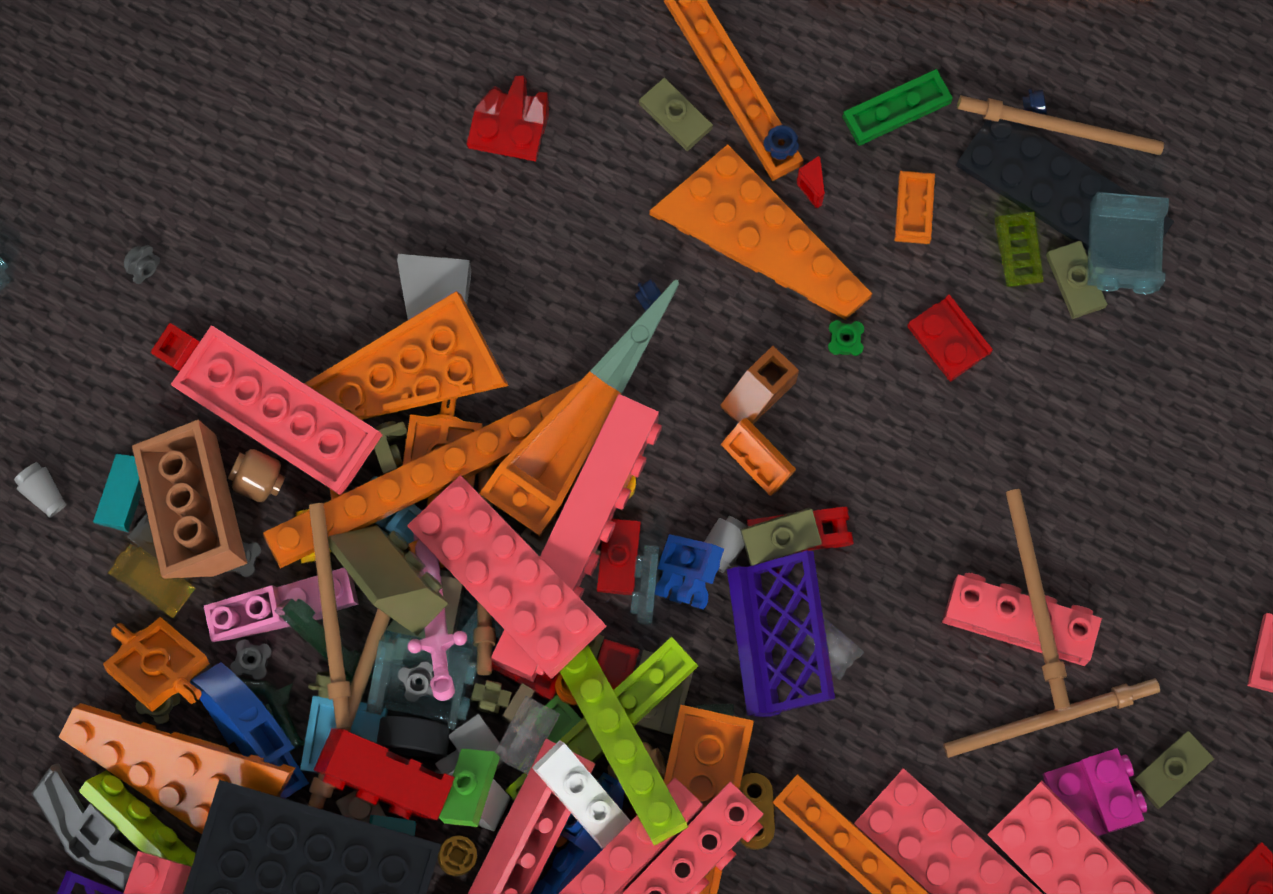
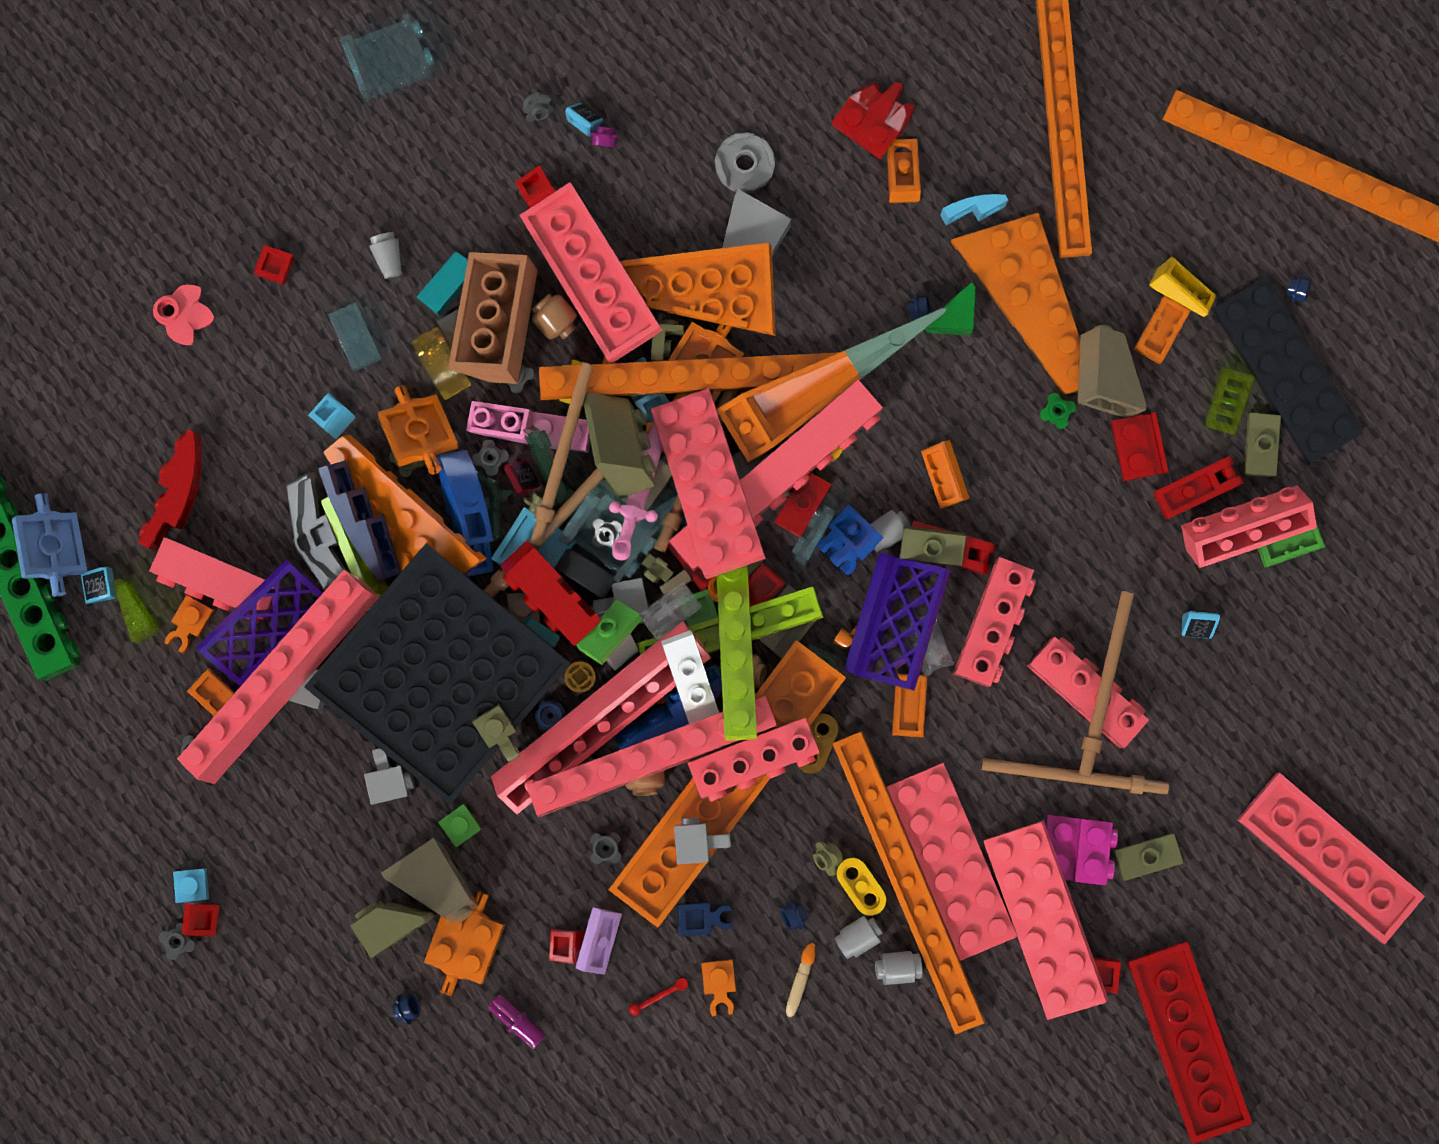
camera: 30 degrees right, 10 degrees up
(41, 594) = (354, 337): none -> clear light blue plate
(52, 693) = (332, 416): none -> medium azure slope
(145, 801) = (366, 531): none -> dark blue slope
(196, 255) = (583, 118): none -> medium azure slope
(228, 263) = (604, 137): none -> magenta plate
(295, 665) = (521, 477): none -> slope
(389, 206) = (750, 179): none -> light grey tile
(567, 164) = (903, 172): none -> orange slope
(664, 162) = (980, 205): none -> medium azure slope
(675, 114) = (1008, 168): olive plate -> none
(694, 287) = (958, 315): none -> green slope
(732, 682) = (844, 638): none -> orange hand
(760, 387) = (971, 421): dark orange slope -> none
(785, 134) = (1080, 223): dark blue plate -> none
(811, 181) = (1090, 272): red slope -> none
(838, 726) = (909, 708): none -> orange tile
(881, 275) = (1108, 374): none -> dark tan slope
(885, 590) = (994, 621): none -> coral brick
(897, 107) = (1187, 241): green plate -> none
(913, 154) = (1182, 286): none -> yellow slope
(995, 110) = (1263, 280): medium nougat bar -> none
(1031, 353) = (1196, 488): none -> red plate
(1104, 367) = (1249, 526): none -> coral brick
(1104, 494) = (1199, 624): none -> slope
(1126, 242) = (1315, 435): clear light blue panel -> none
(1155, 367) = (1291, 547): none -> bright green plate

